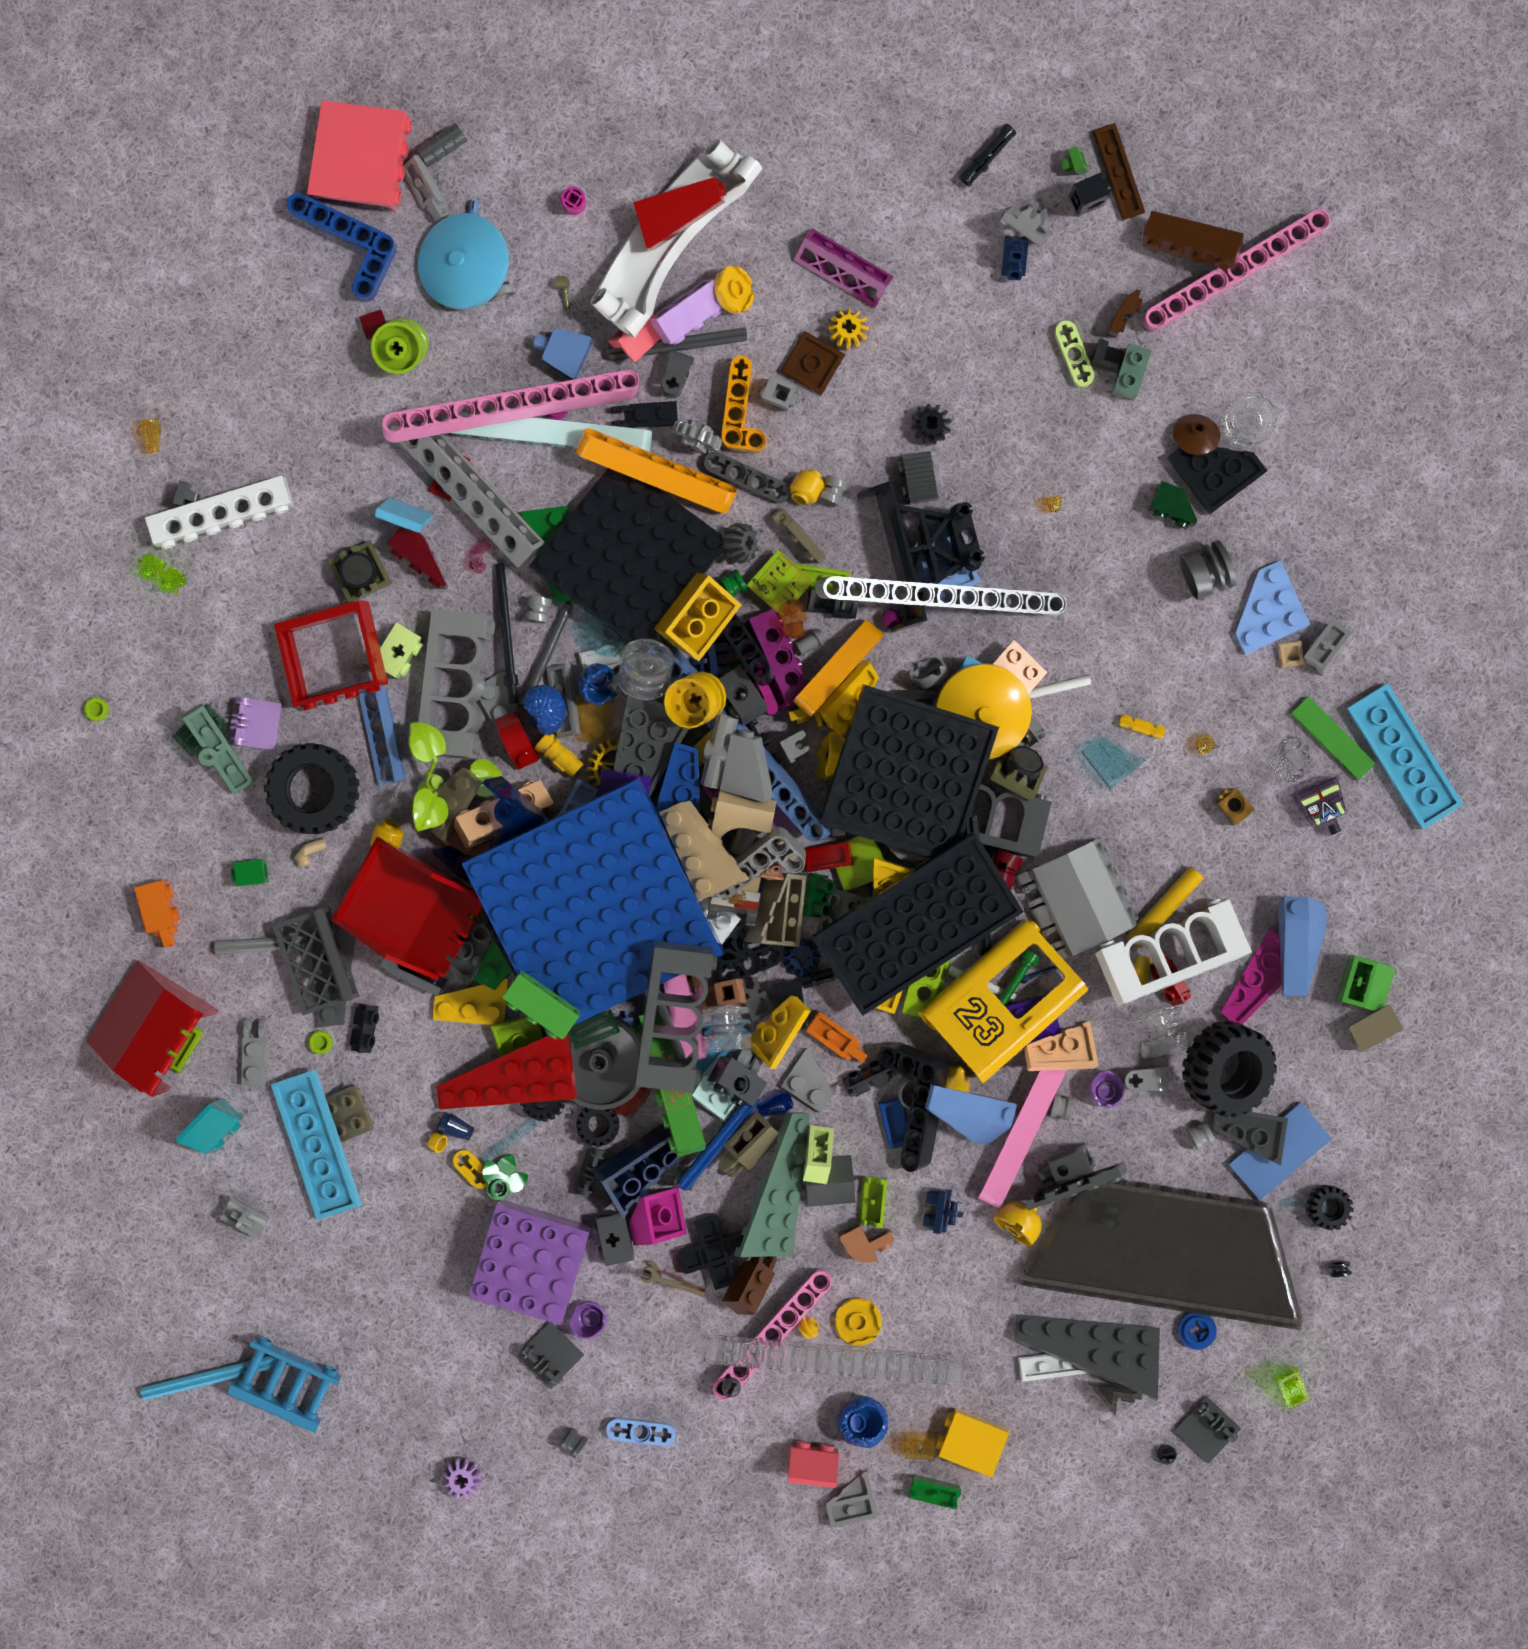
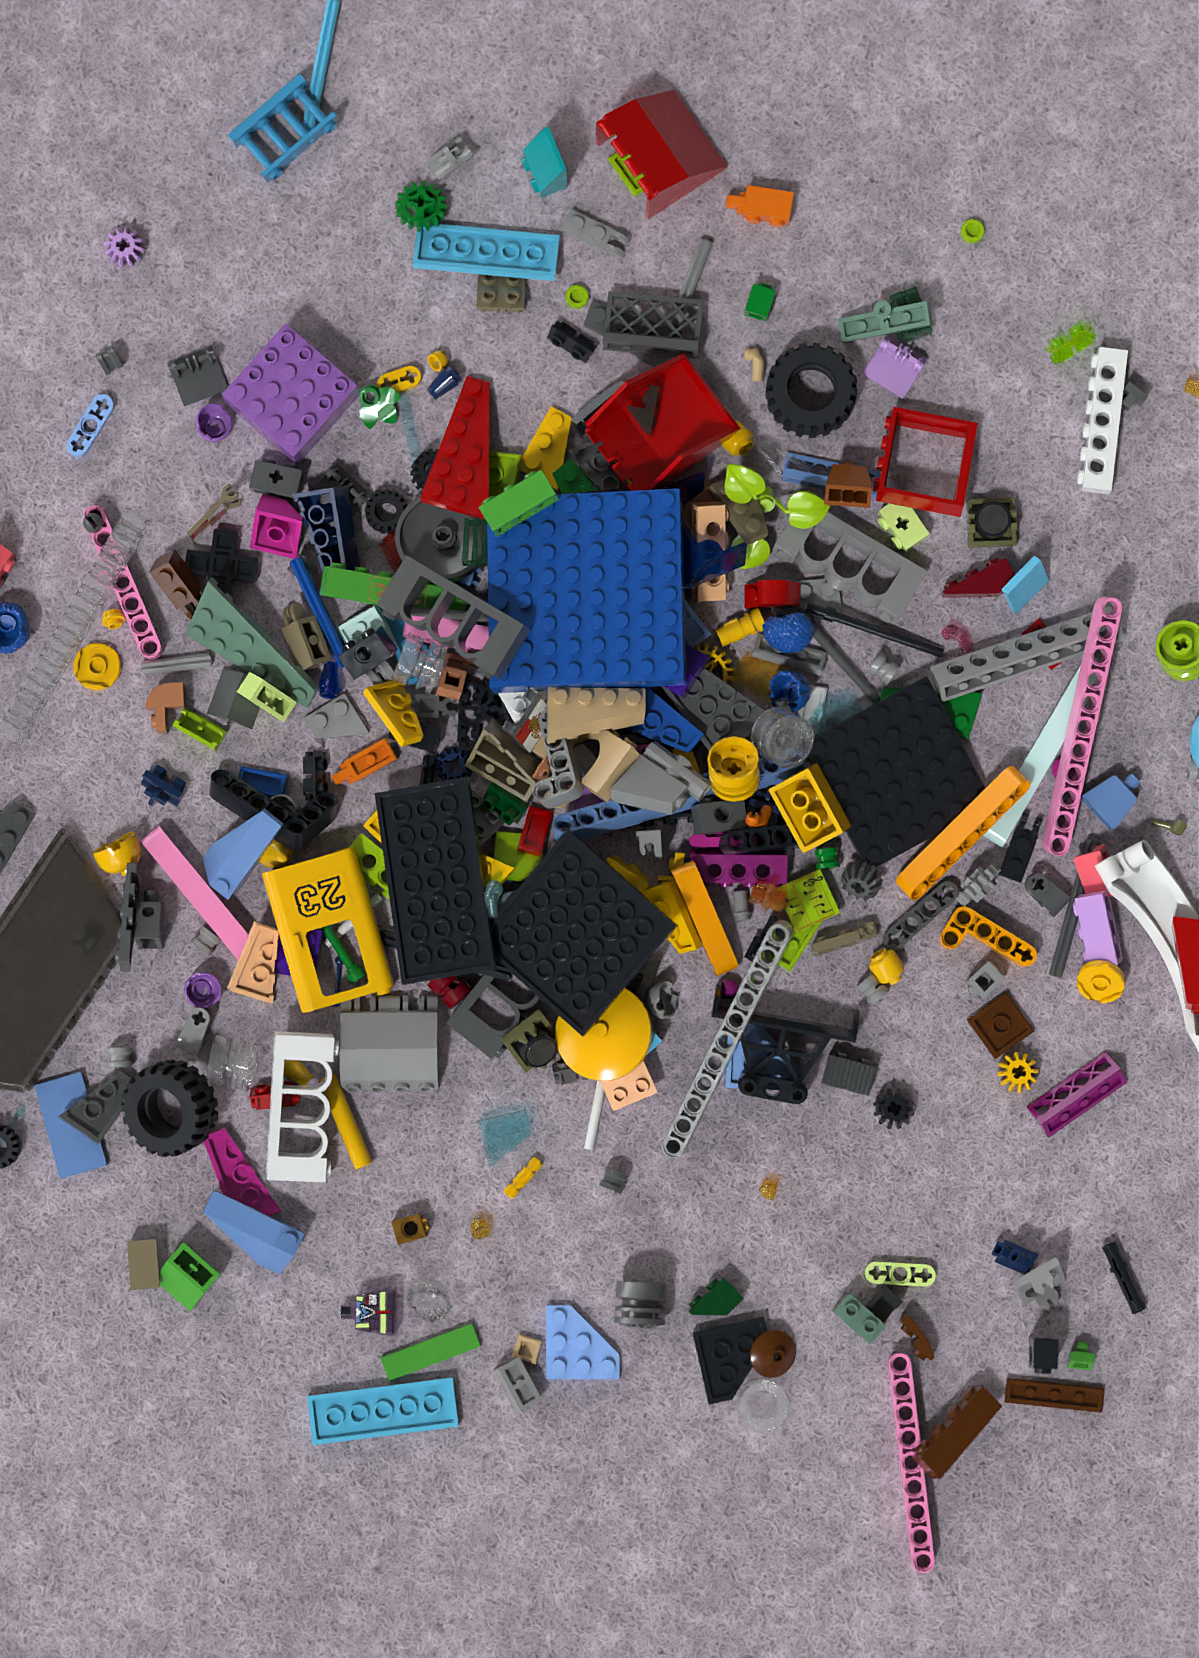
camera: 120 degrees right, 5 degrees down
(303, 1212) = (433, 206): none -> green gear
(386, 712) = (848, 486): none -> dark orange torso
(405, 927) = (647, 416): none -> clear smoke slope
(729, 657) = (759, 820): none -> orange arm
(823, 1250) = (176, 664): none -> light grey axle
(910, 865) = (492, 895): none -> clear light blue arm
(1108, 644) = (613, 1180): none -> dark grey wheel

